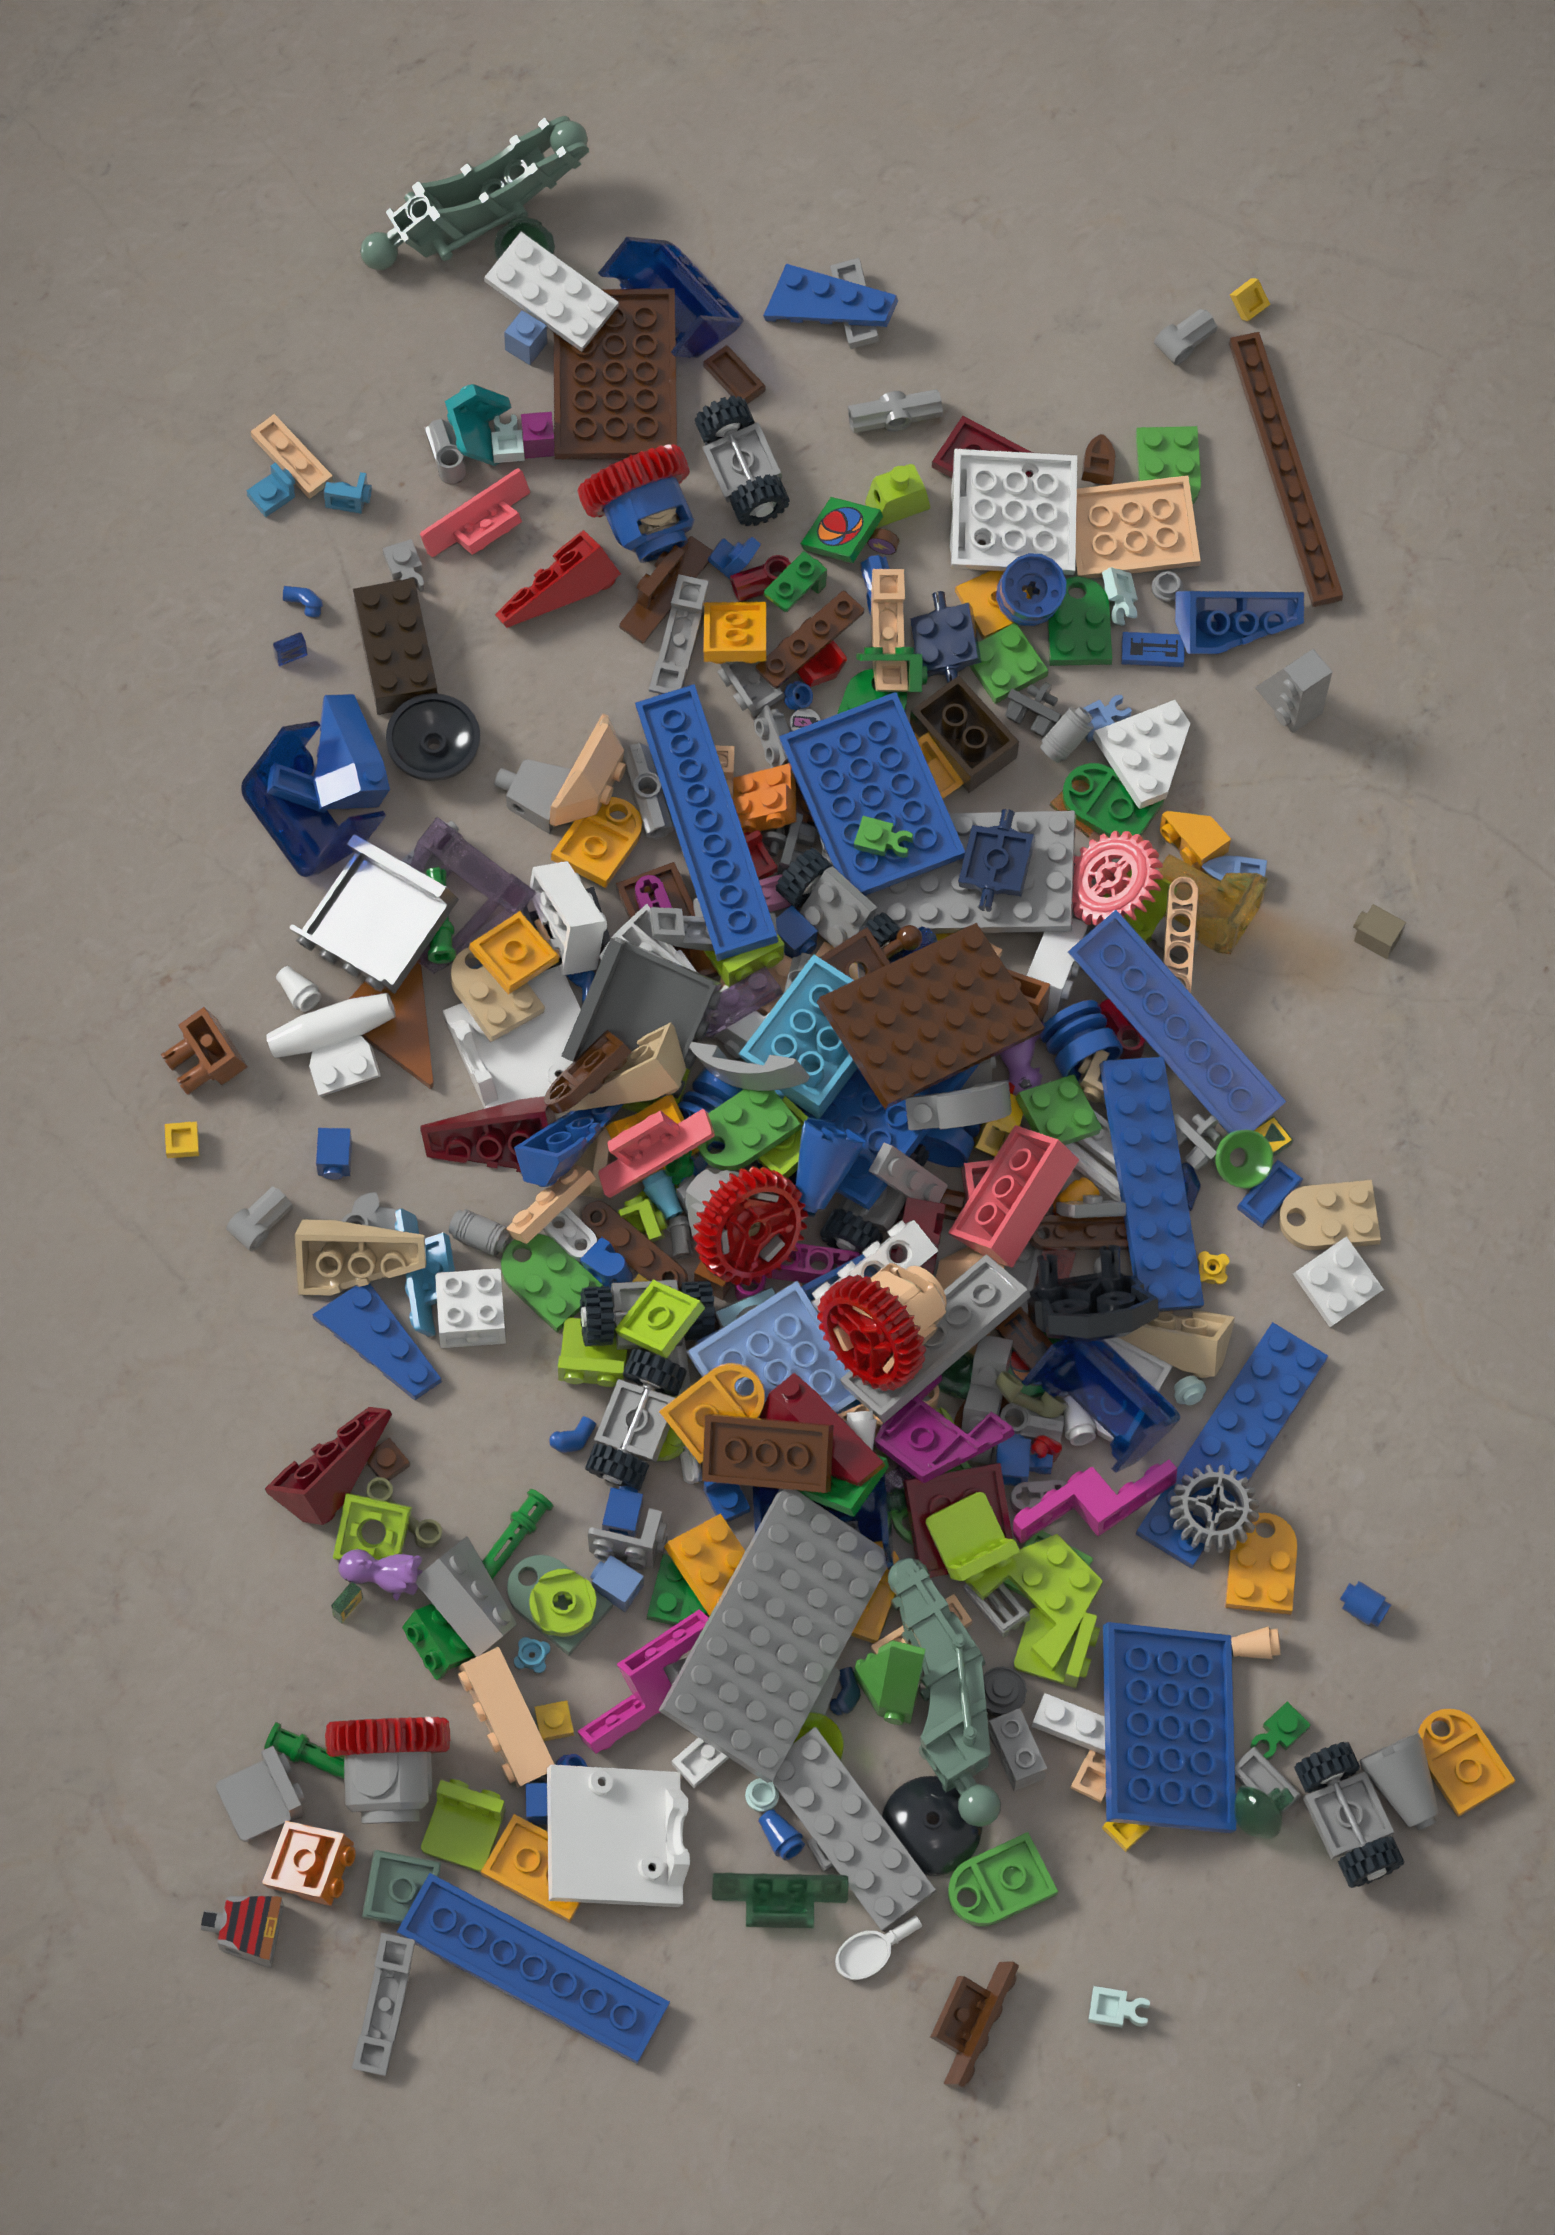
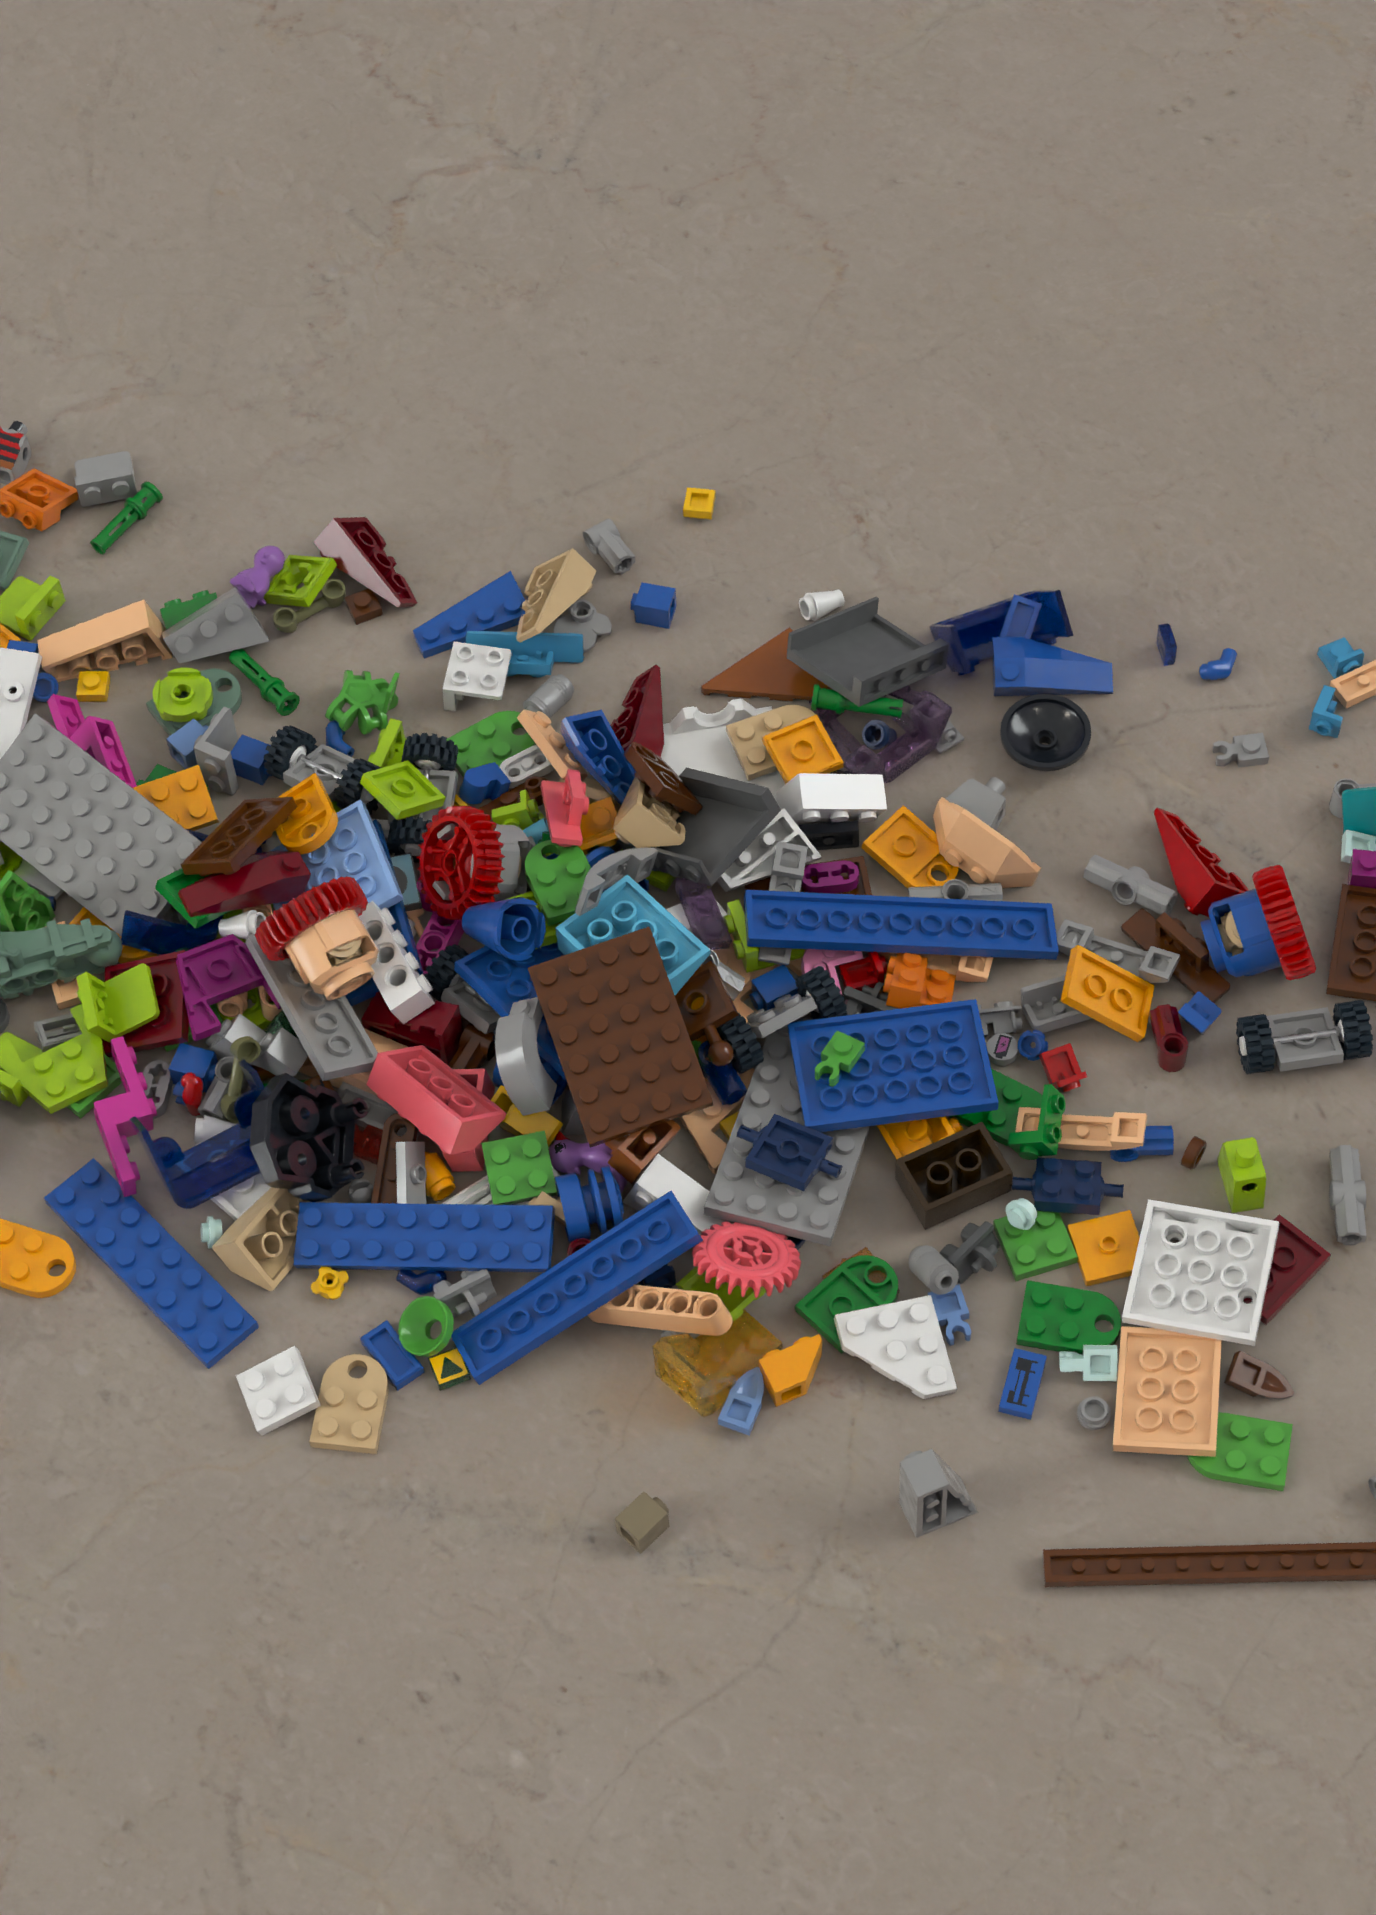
camera: 110 degrees right, 10 degrees down
(212, 1045) = (775, 527): dark orange brick -> none
(334, 1037) = (765, 617): white plate -> none
(346, 1602) = (243, 552): clear green tile -> none
(387, 1764) = (89, 544): piece -> none
(394, 643) = (1152, 723): dark brown brick -> none
(470, 891) = (878, 734): none -> dark blue cone
(480, 518) = (1281, 814): coral bracket -> none
(524, 1410) = (363, 694): none -> bright green piece
(529, 1646) = (151, 673): medium azure plate -> none
(597, 636) = (1130, 885): none -> light grey piece
(796, 581) = (1157, 1059): green bracket -> none
(809, 639) = (1085, 1055): reddish brown bracket -> none
(842, 529) = (1211, 1115): tile -> none
(906, 1175) = (474, 1006): light grey plate -> none
(994, 666) = (1021, 1213): none -> light aqua plate
(1047, 583) = (1096, 1257): blue wheel -> none
(1202, 1507) = (77, 1203): light grey gear -> none
(1225, 619) = (1041, 1458): blue wedge -> none

